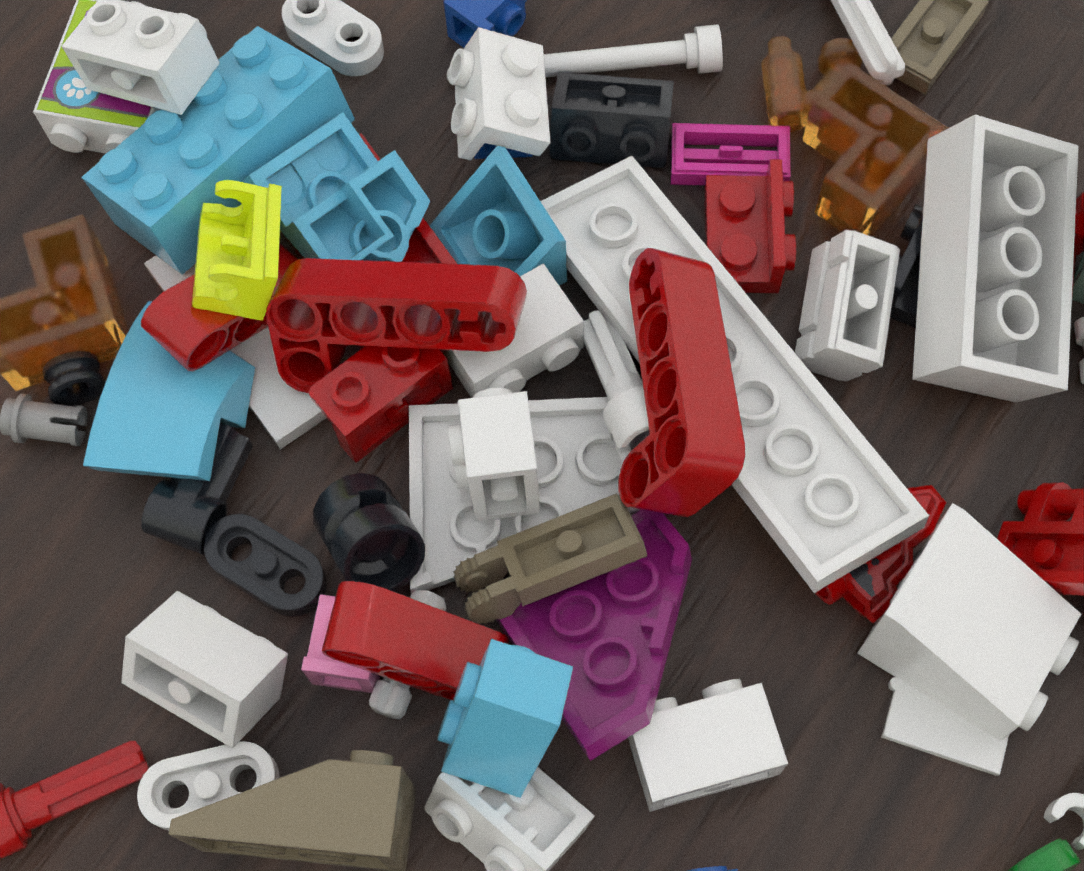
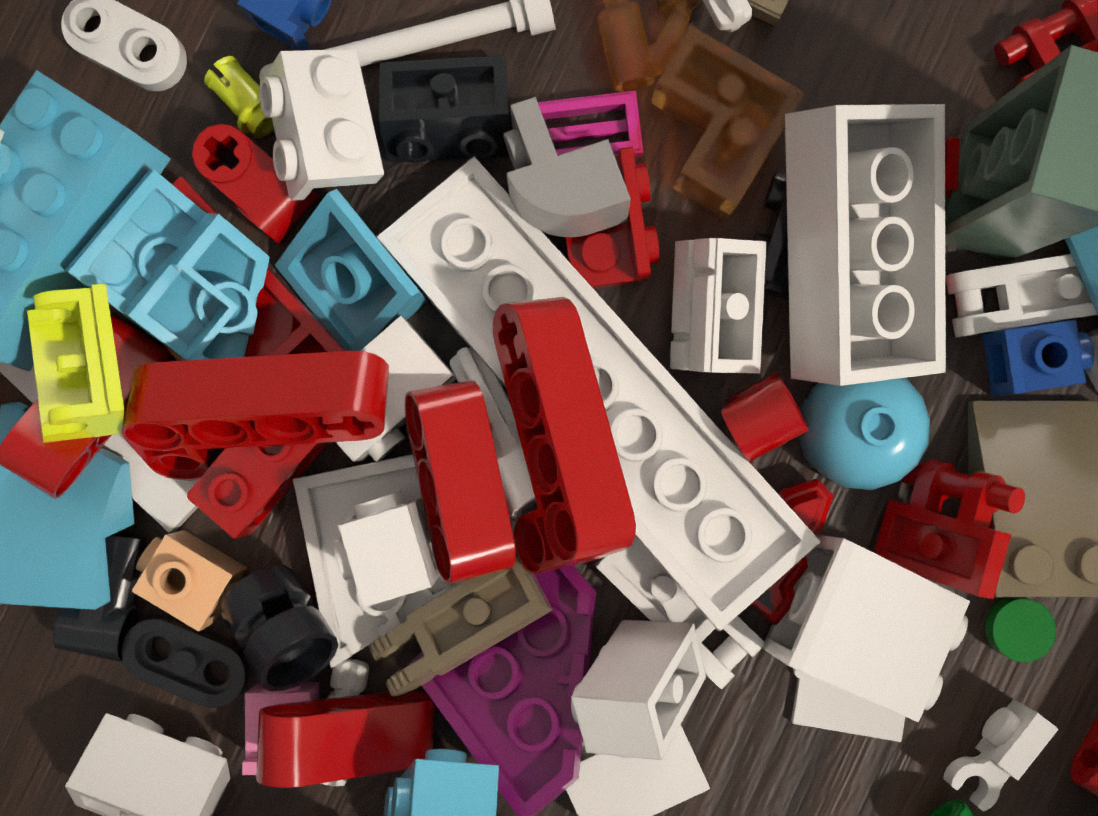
camera: 15 degrees left, 20 degrees up
(283, 481) = (187, 578): none -> light nougat brick
(424, 145) = (251, 183): none -> red piece
(429, 84) = (240, 95): none -> neon yellow pin
(575, 410) = (459, 481): none -> red beam
(714, 182) = (564, 192): none -> light grey brick
(724, 641) = (639, 689): none -> white brick
(776, 591) = (662, 600): none -> white plate
(887, 408) = (763, 417): none -> red piece
(982, 447) = (865, 432): none -> medium azure cylinder

